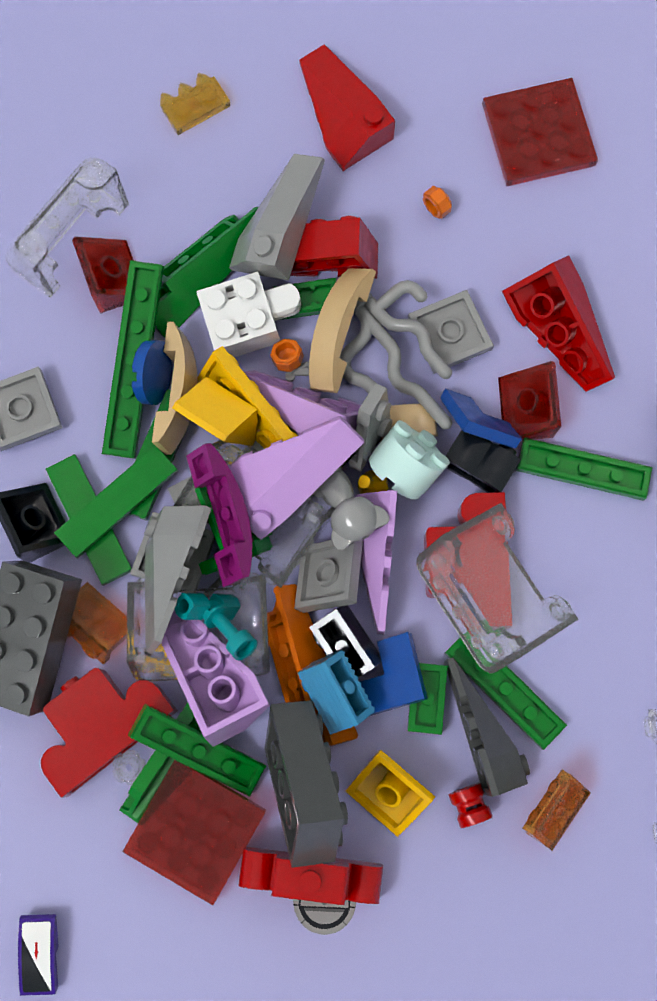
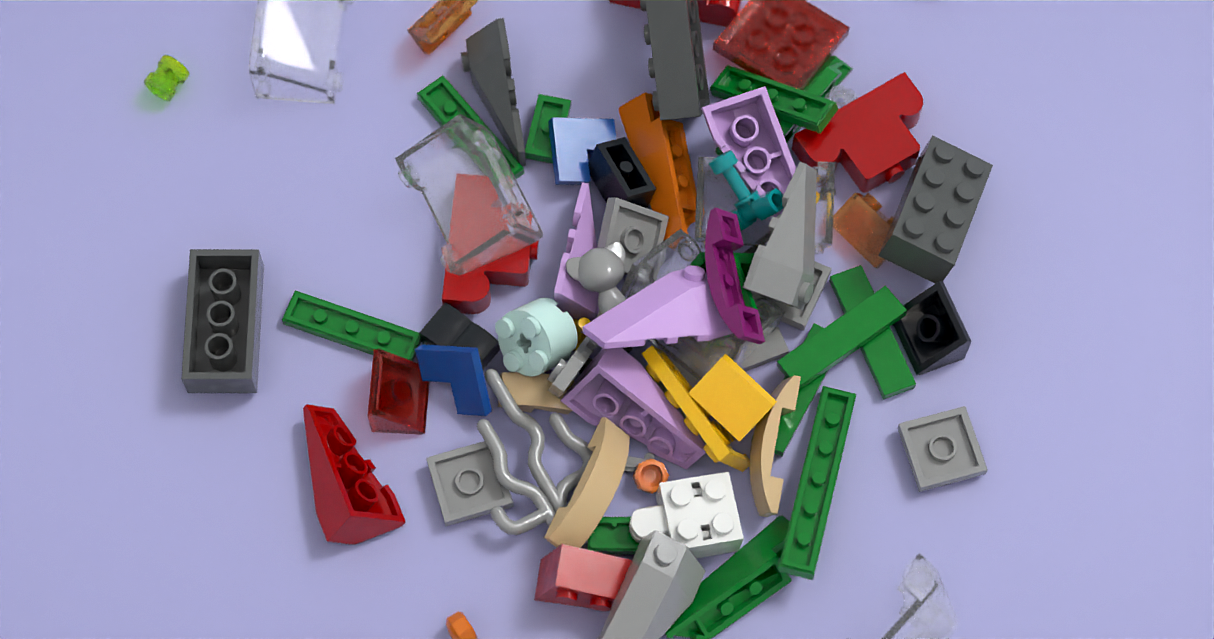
camera: 175 degrees left, 10 degrees down
(105, 269) = (842, 588): clear red slope -> none
(152, 371) = (798, 459): blue tile -> none
(336, 692) = (636, 126): dark azure brick -> none
(389, 793) = (592, 55): yellow slope -> none
(469, 797) = (521, 36): red wheel -> none

